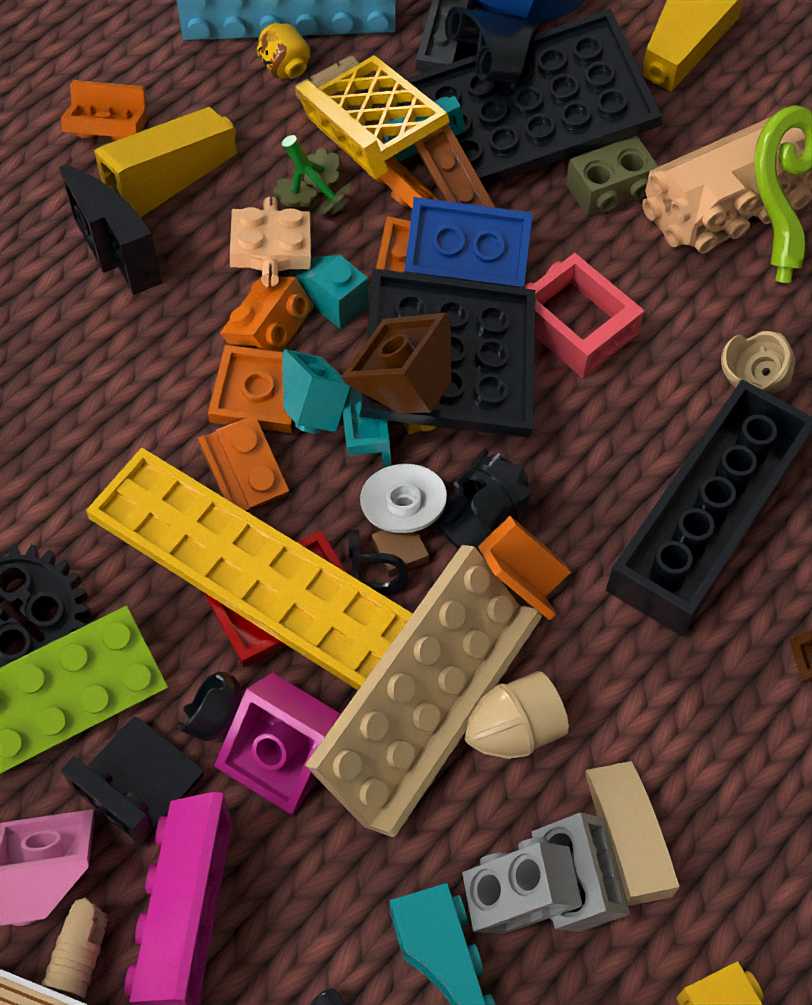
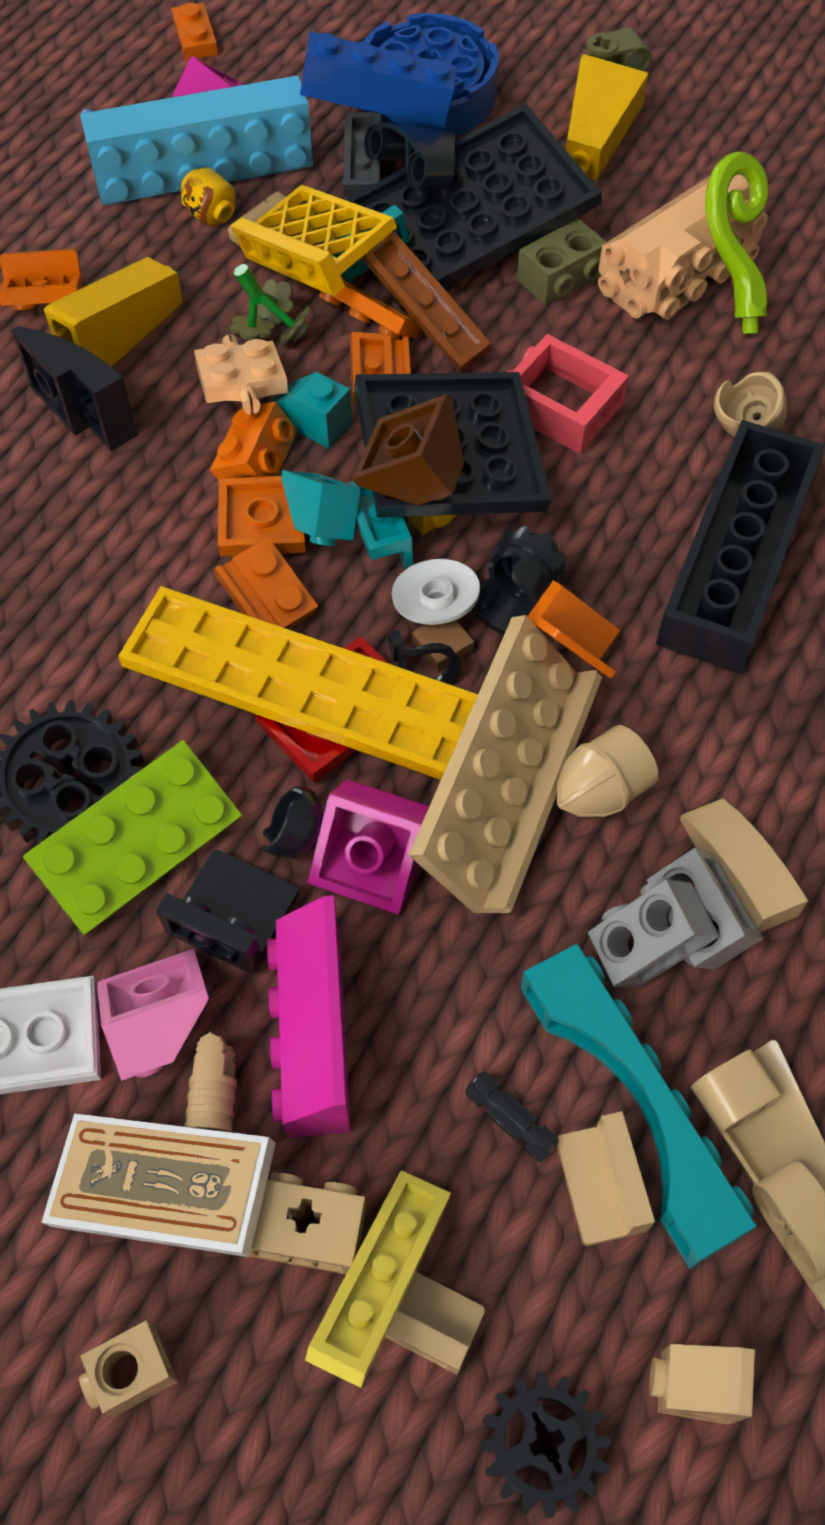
camera: 10 degrees left, 0 degrees up
(468, 242) = (440, 337): blue plate -> none

